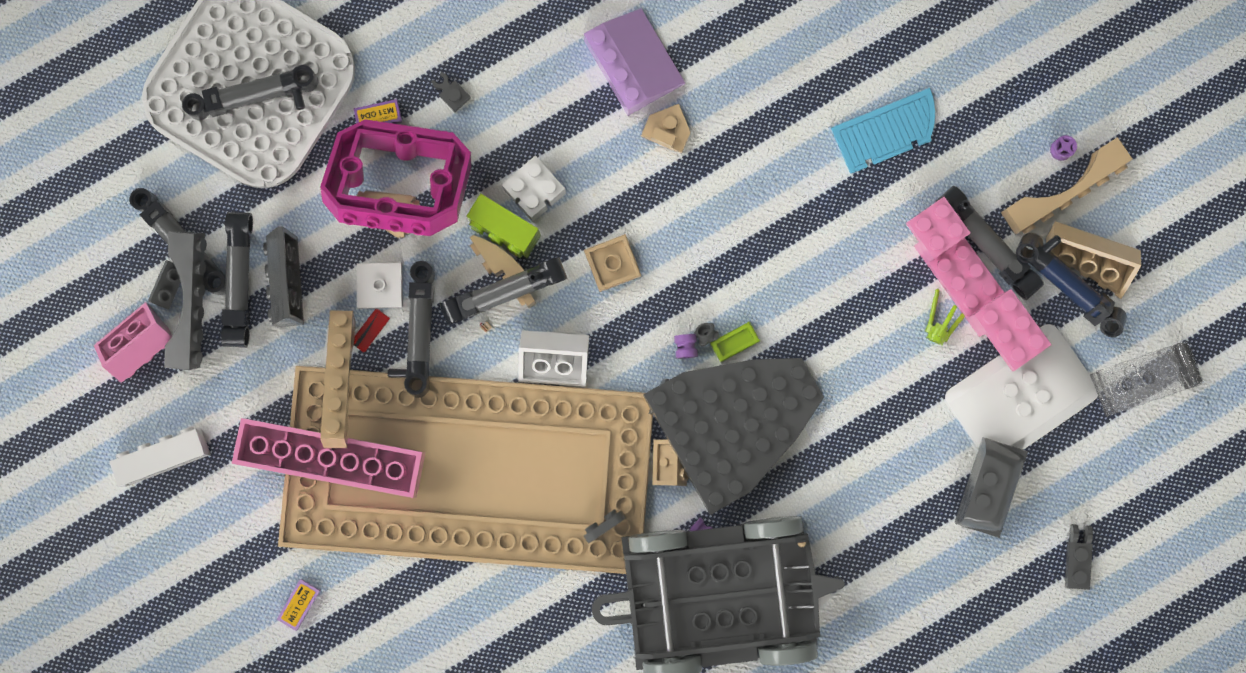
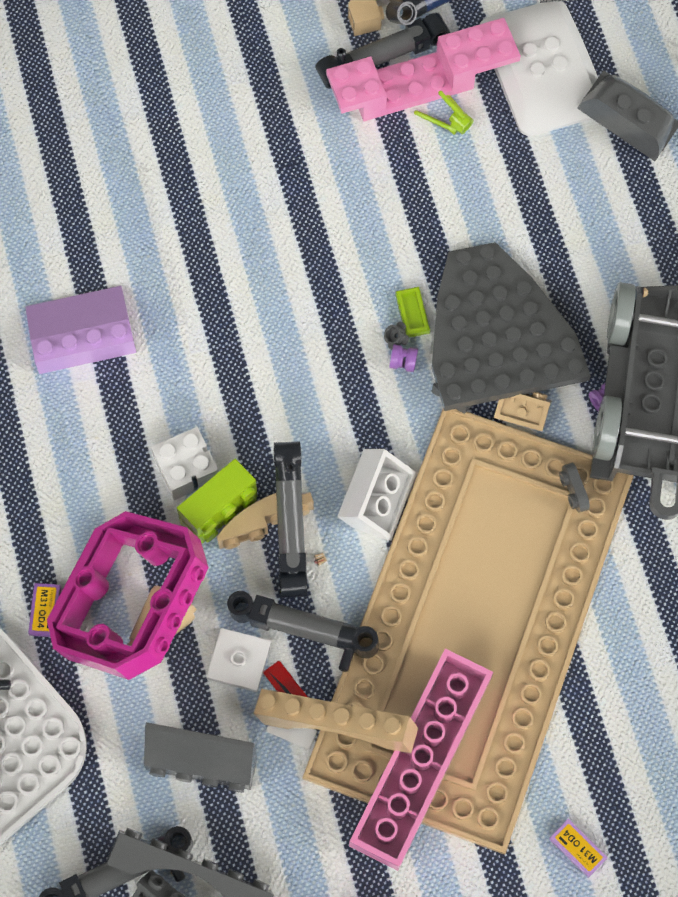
camera: 75 degrees left, 15 degrees down
(236, 312) = (184, 812): piece -> none
(452, 93) = (50, 522): dark grey plate -> none
(612, 263) = (291, 407): tan plate -> none
(668, 128) = (165, 315): tan plate -> none
(886, 131) = (238, 113): medium azure piece -> none

